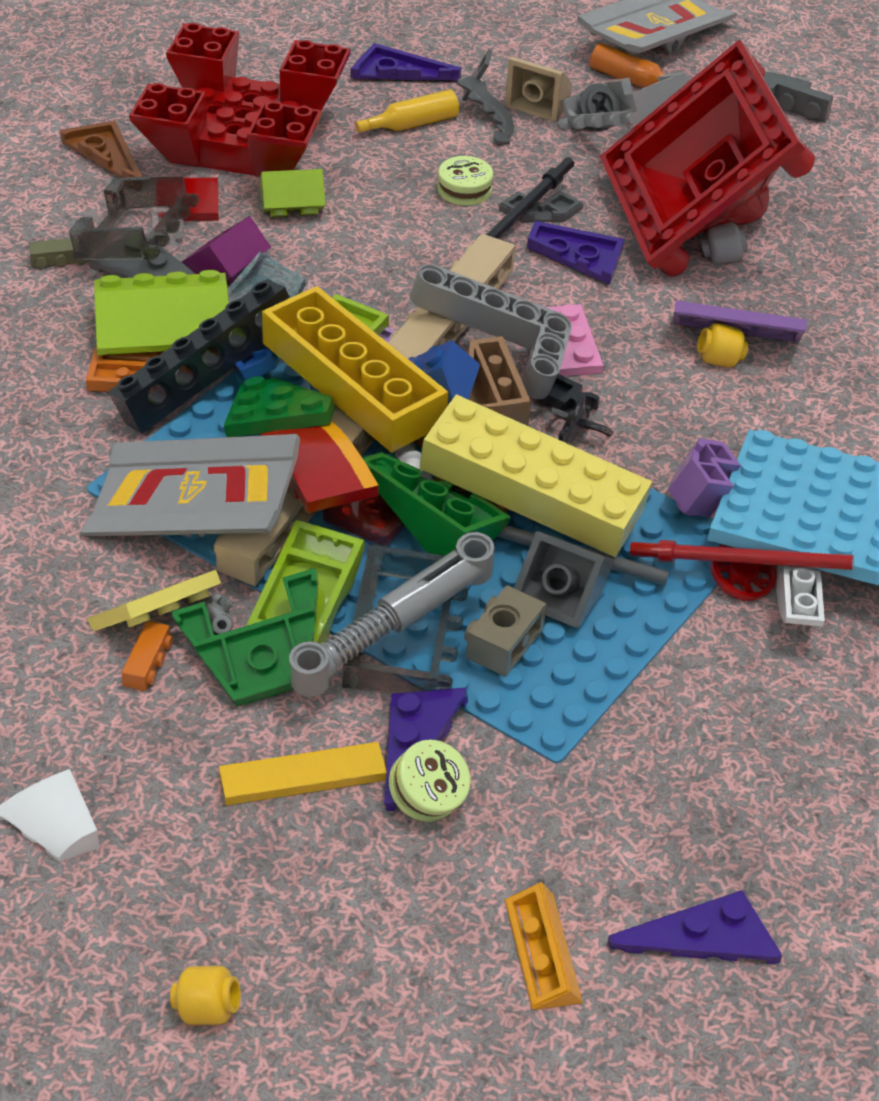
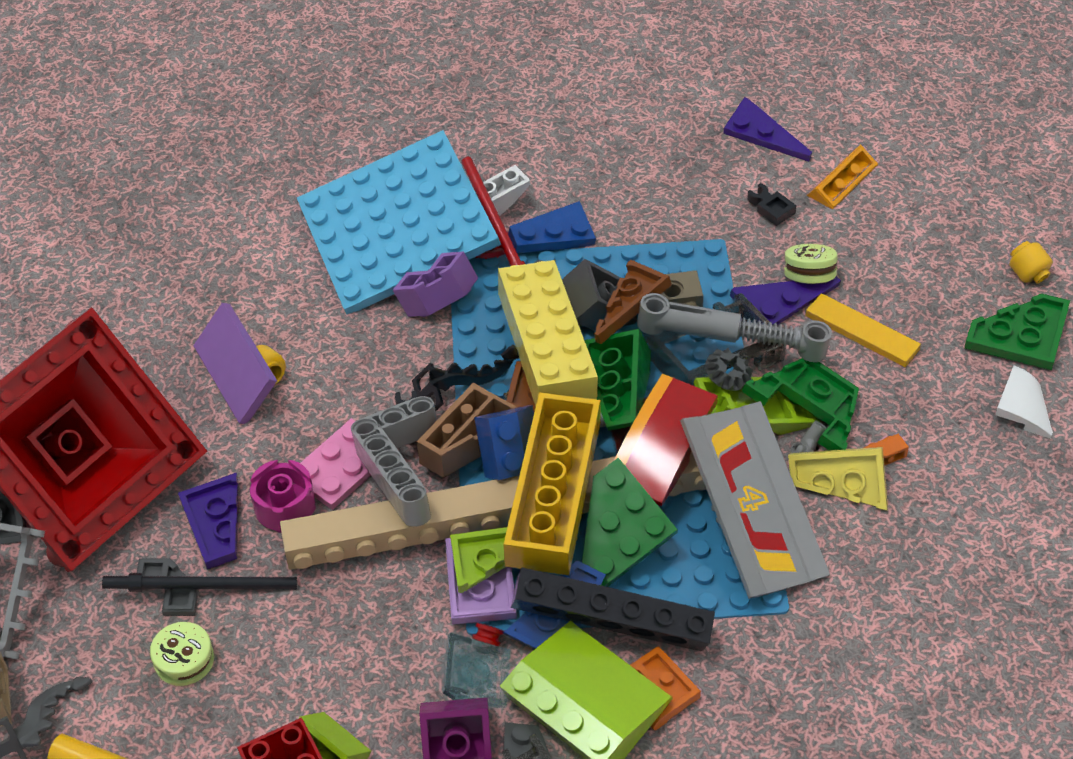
camera: 125 degrees left, 5 degrees up
(132, 902) = (1022, 332): none -> green plate
(337, 584) = (716, 368): none -> dark grey gear
(517, 565) = (626, 298): none -> dark orange wing
(553, 276) = (281, 493): none -> dark pink brick
(559, 835) = (773, 207): none -> black plate
(709, 626) = (553, 231): none -> blue wing

